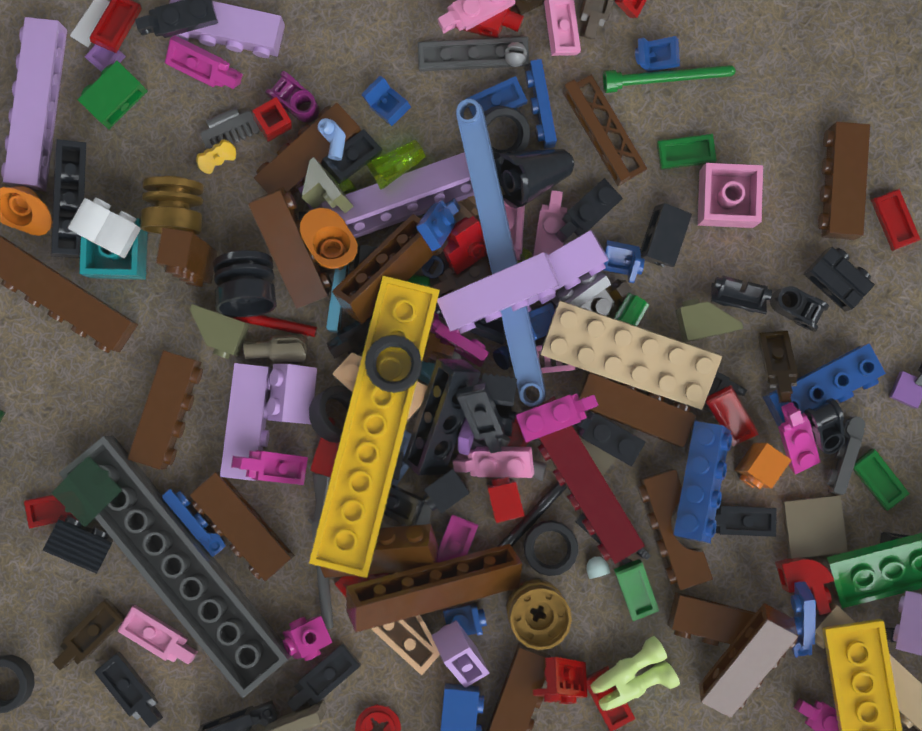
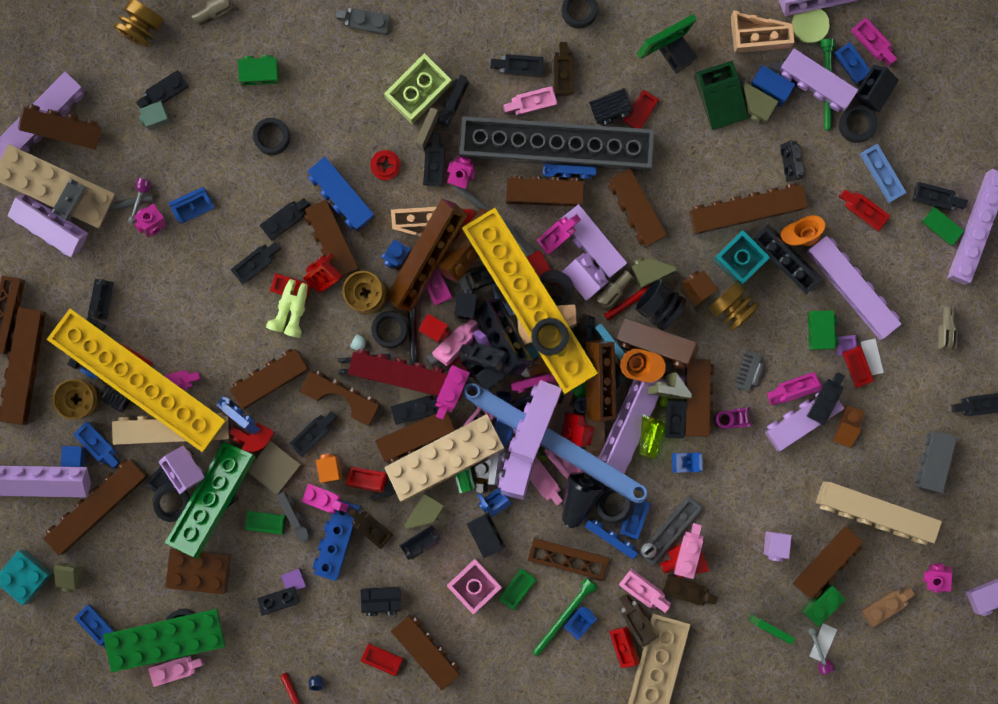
camera: 135 degrees right, 0 degrees up
(86, 491) = (632, 135): clear green piece -> none
(104, 227) = (751, 263): white brick -> none
(216, 156) = (741, 352): yellow piece -> none
(272, 119) = (731, 396): red brick -> none
(334, 136) = (692, 418): light blue arm -> none
(438, 223) = (598, 425): blue hinge -> none
(460, 654) = (382, 237): lavender brick -> none
(589, 210) = (534, 509): black hinge -> none
(636, 589) = (329, 351): green tile -> none
(703, 482) = (349, 432): blue brick -> none
(748, 660) = (246, 370): brick -> none
(803, 310) = (385, 567): black piece -> none
(827, 426) = (317, 518): black piece -> none

